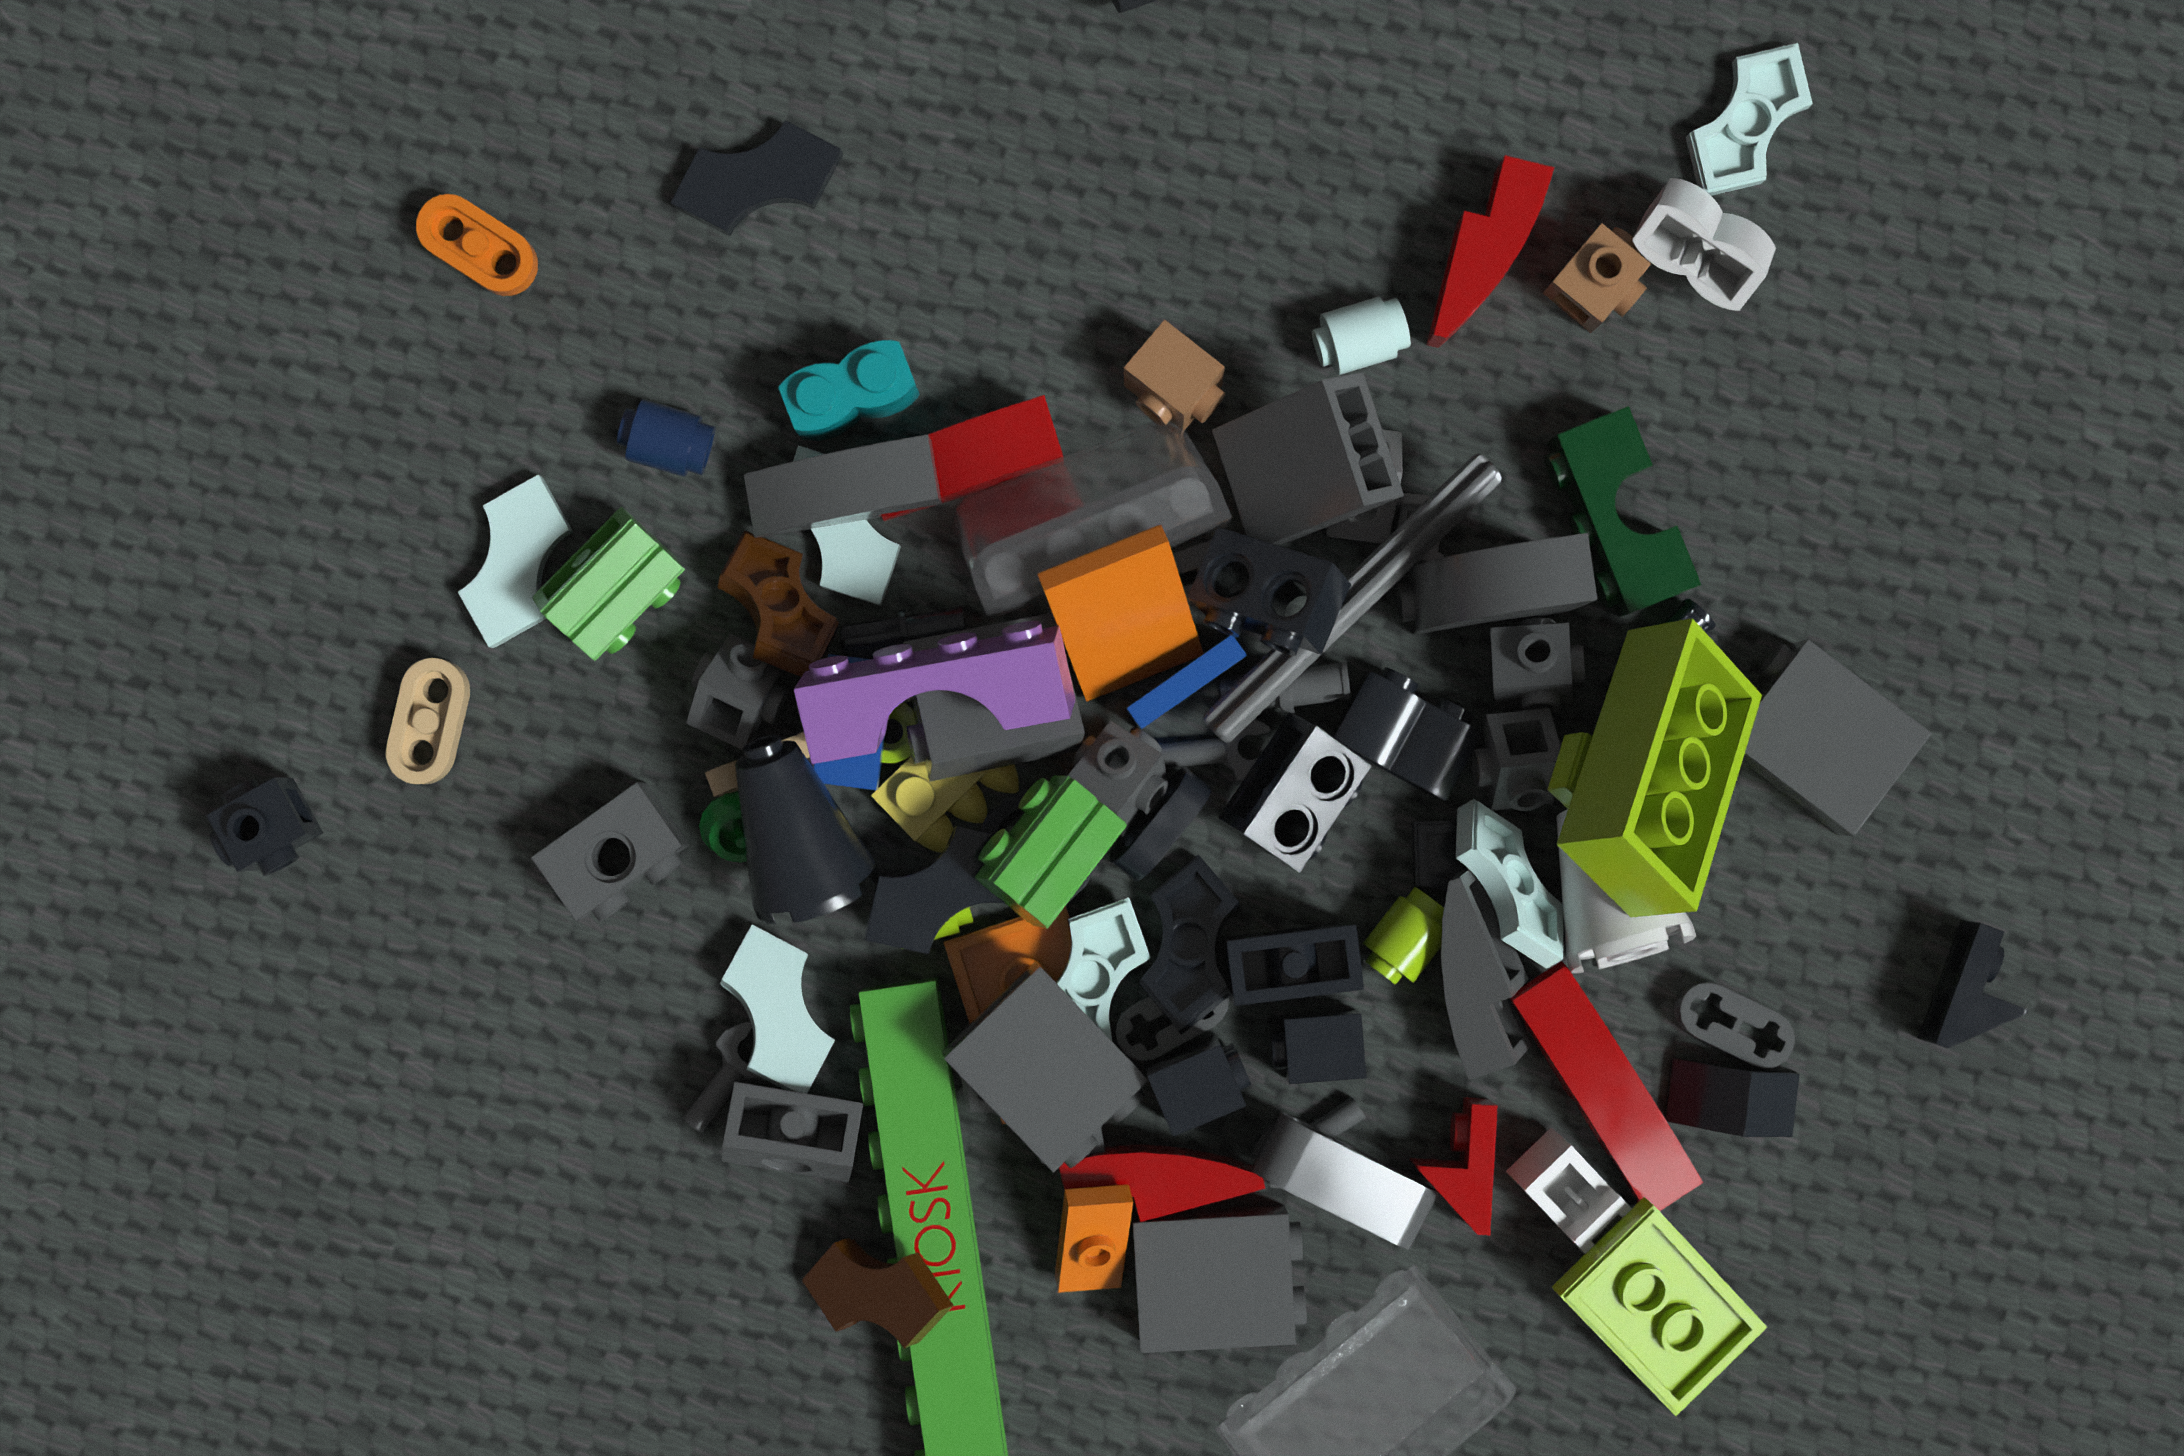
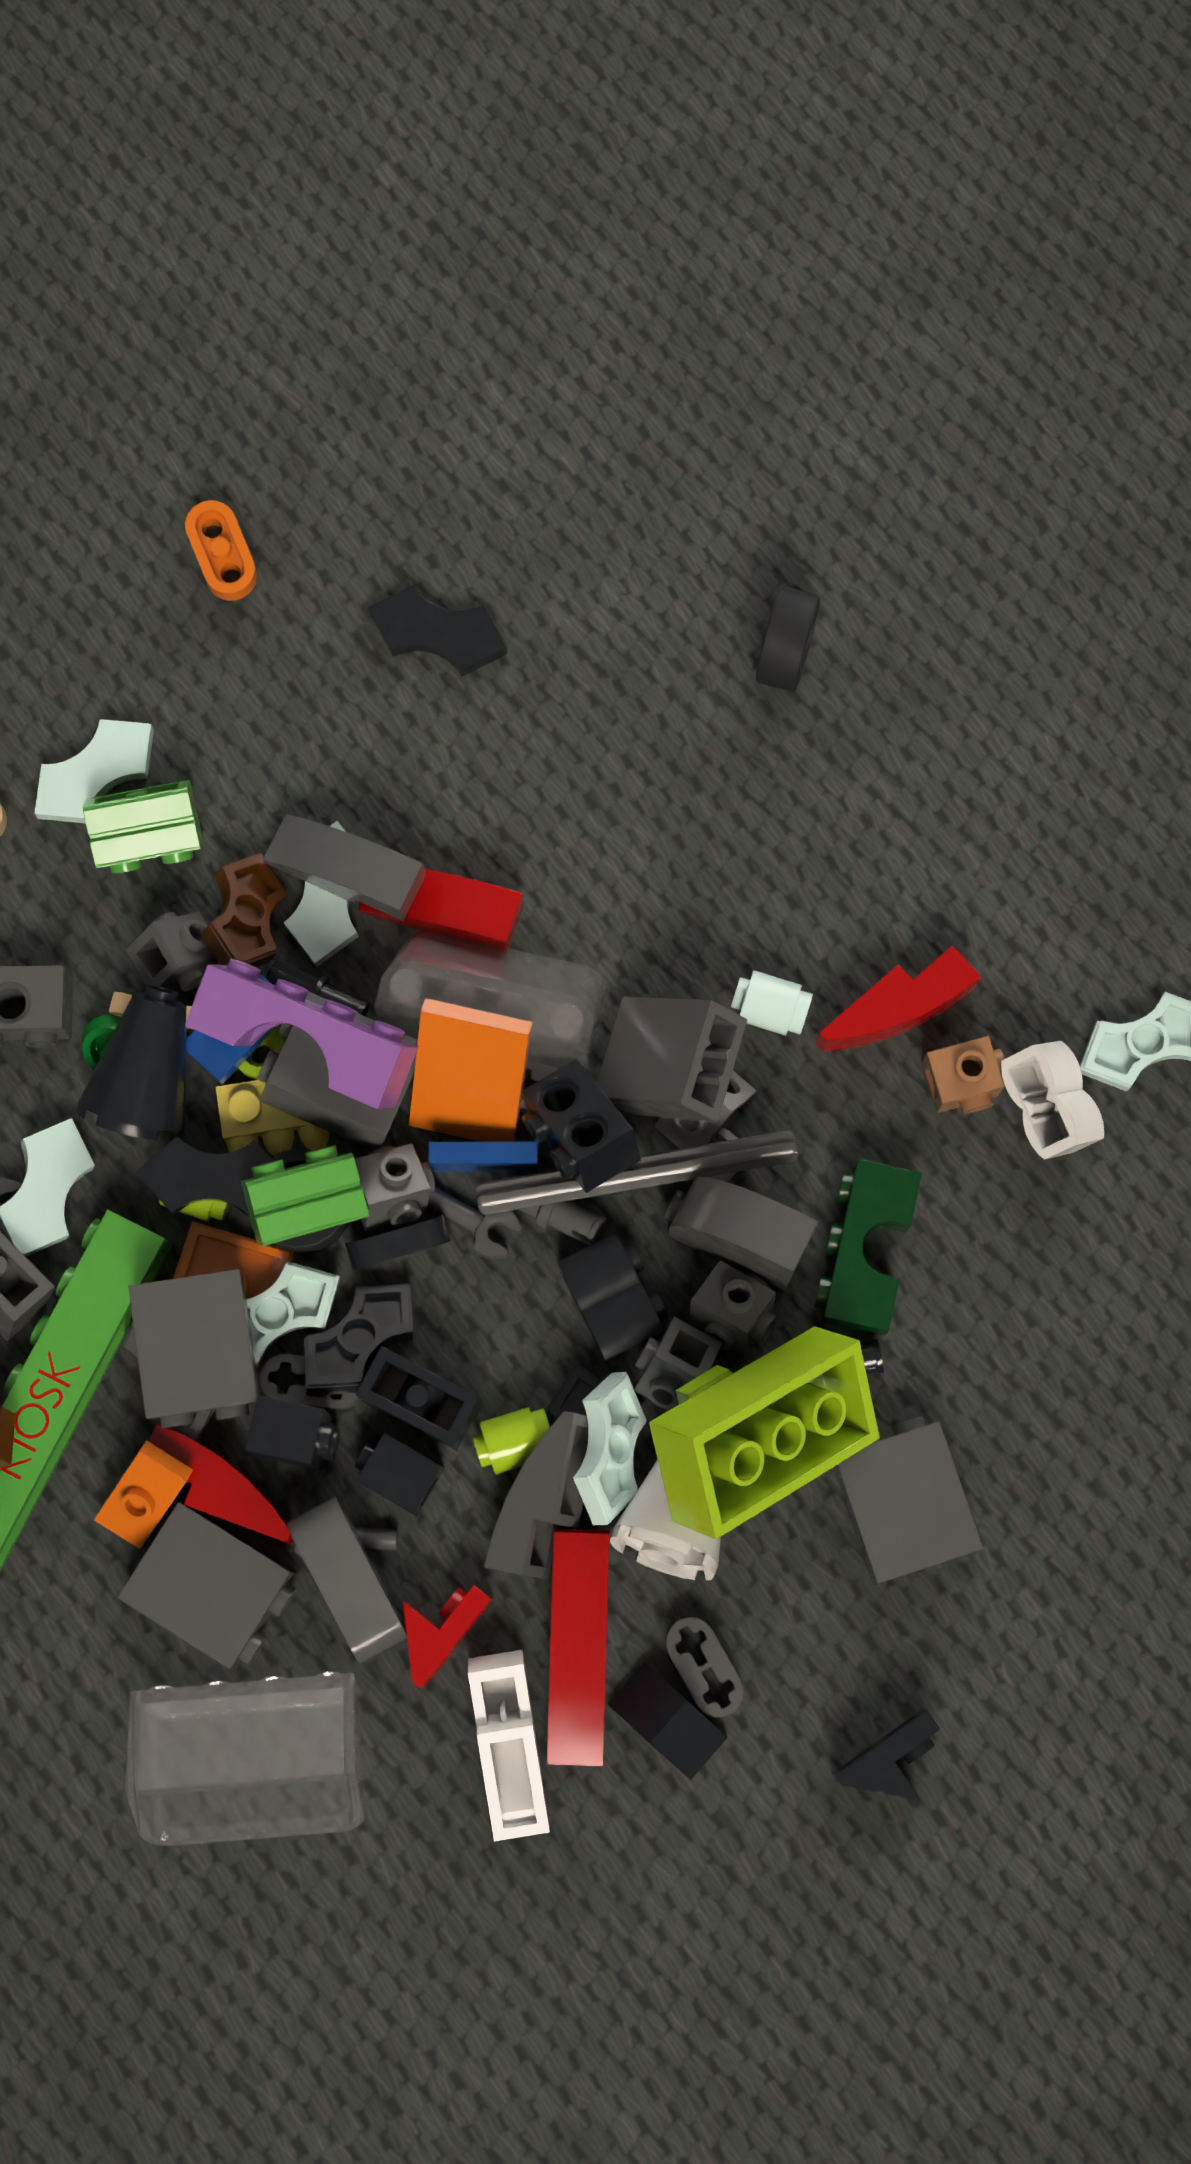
camera: 35 degrees right, 10 degrees down
(666, 438) = (252, 757): dark blue brick -> none
(833, 397) = (383, 805): teal brick -> none
(1174, 378) = (621, 945): medium nougat brick -> none
(1283, 783) = (500, 1269): black brick -> none
(1659, 1306) = (507, 1831): lime tile -> none

